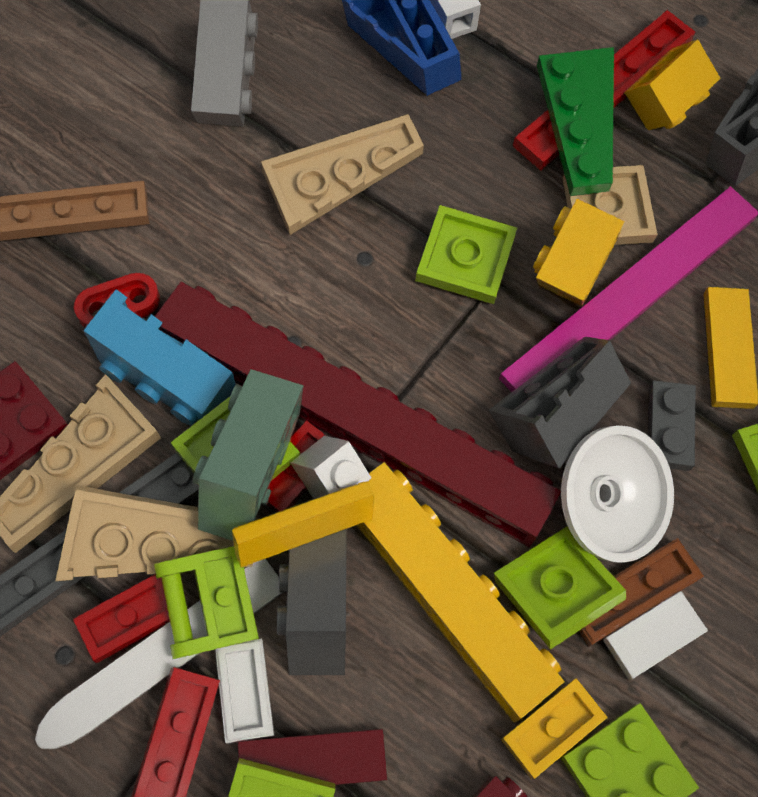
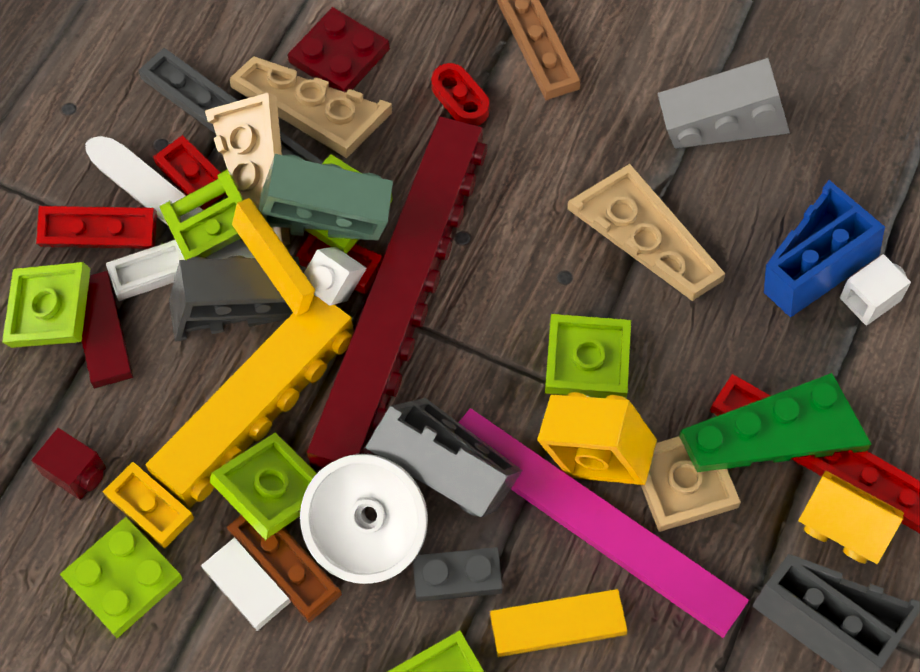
camera: 85 degrees right, 5 degrees down
(156, 362) = (407, 126): dark azure wedge -> none

